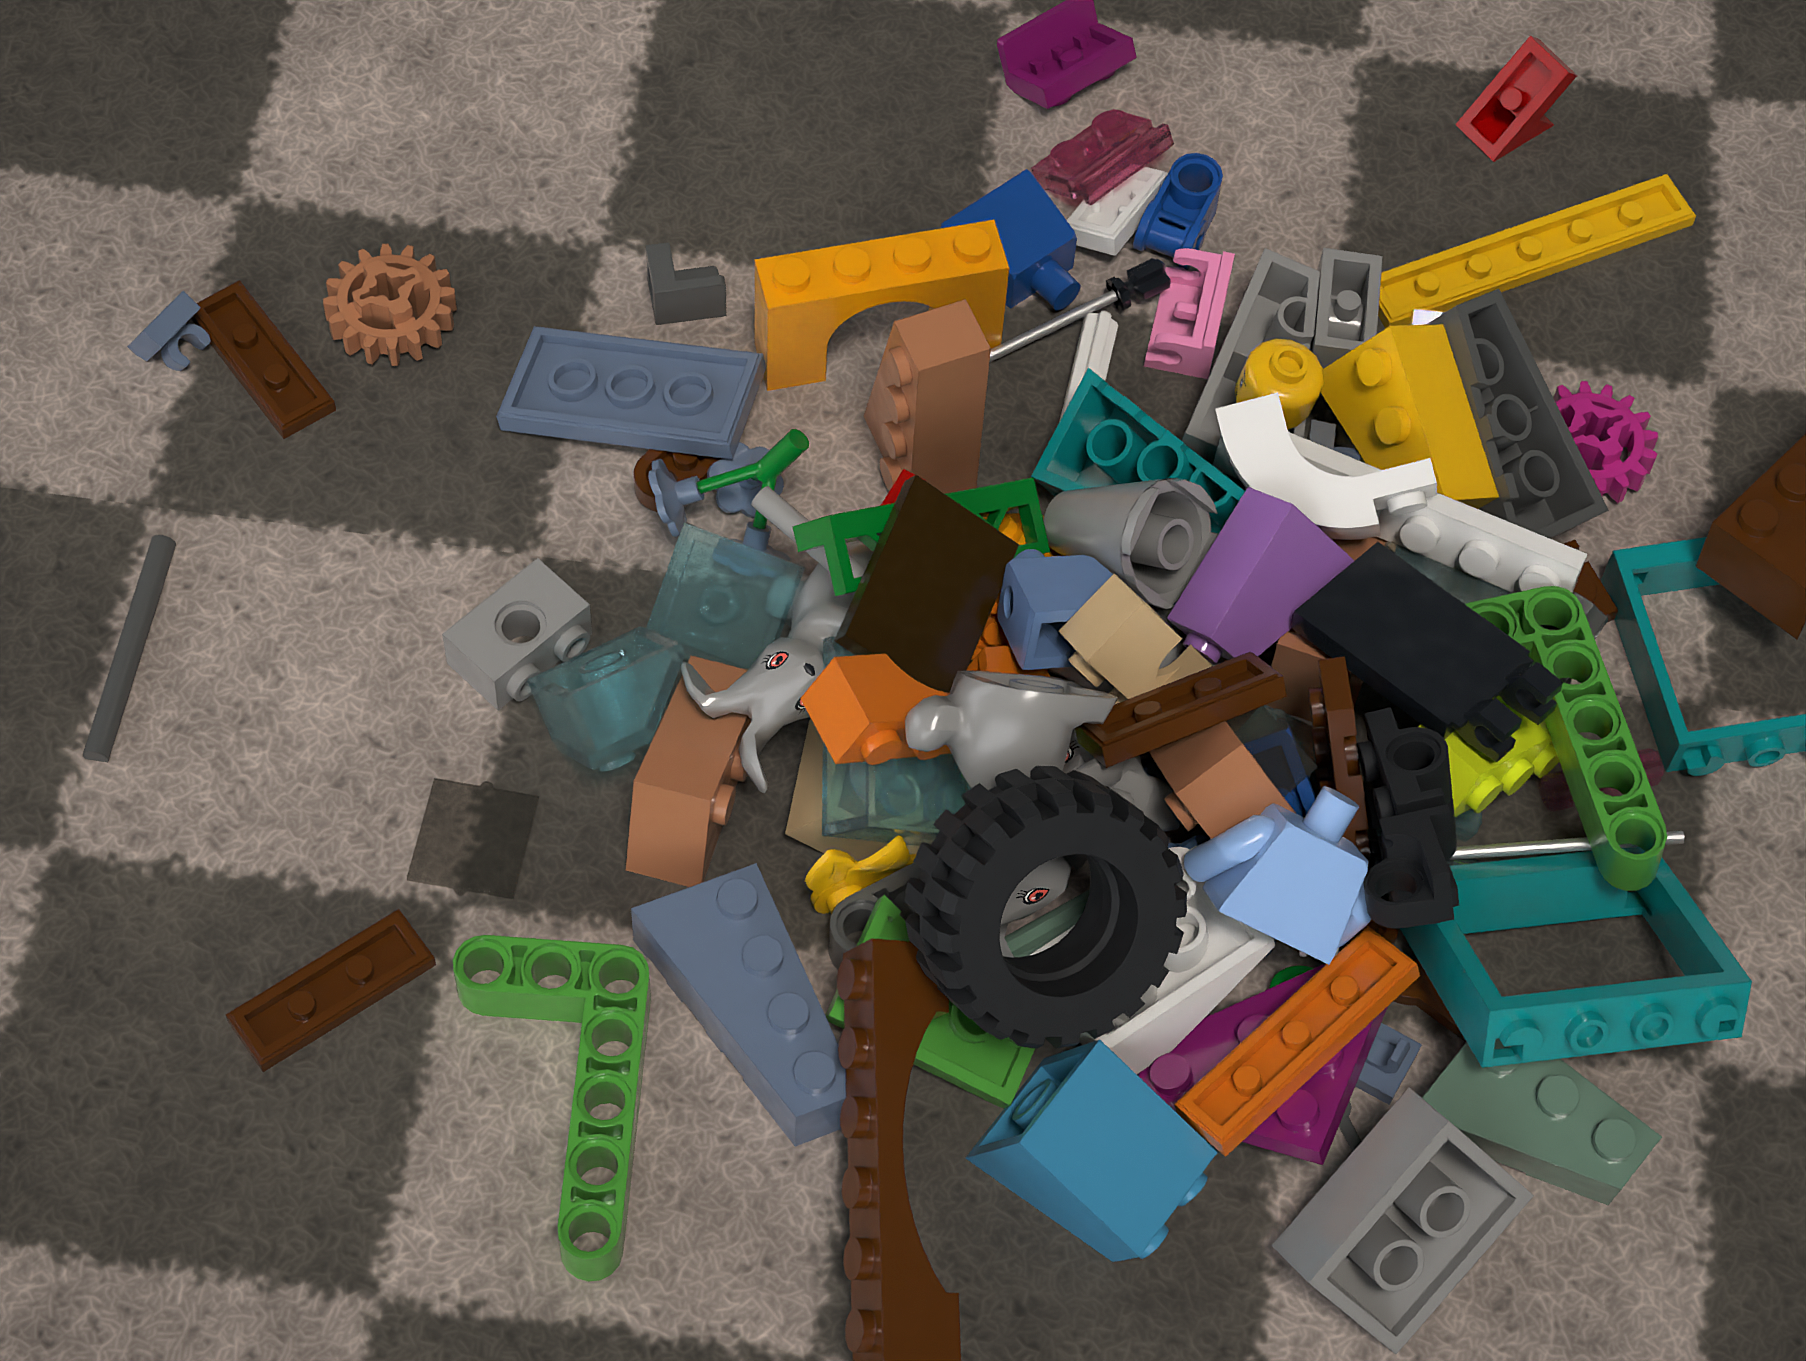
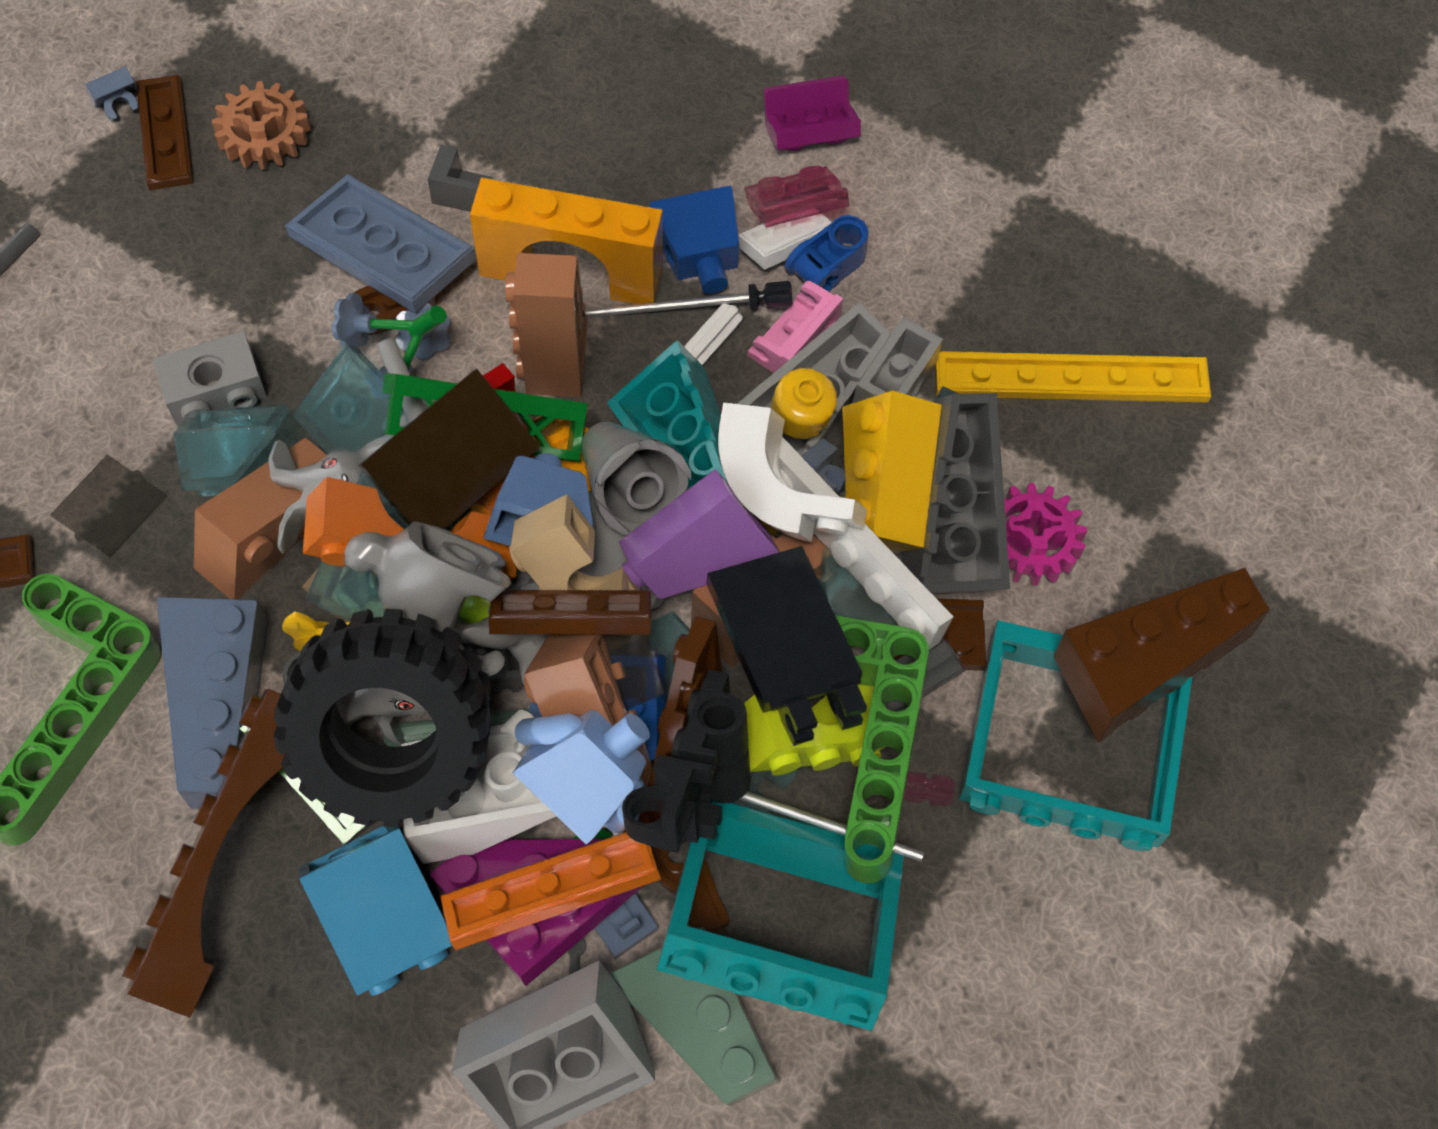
camera: 25 degrees right, 5 degrees up
(1516, 100) = (1118, 263): red slope -> none

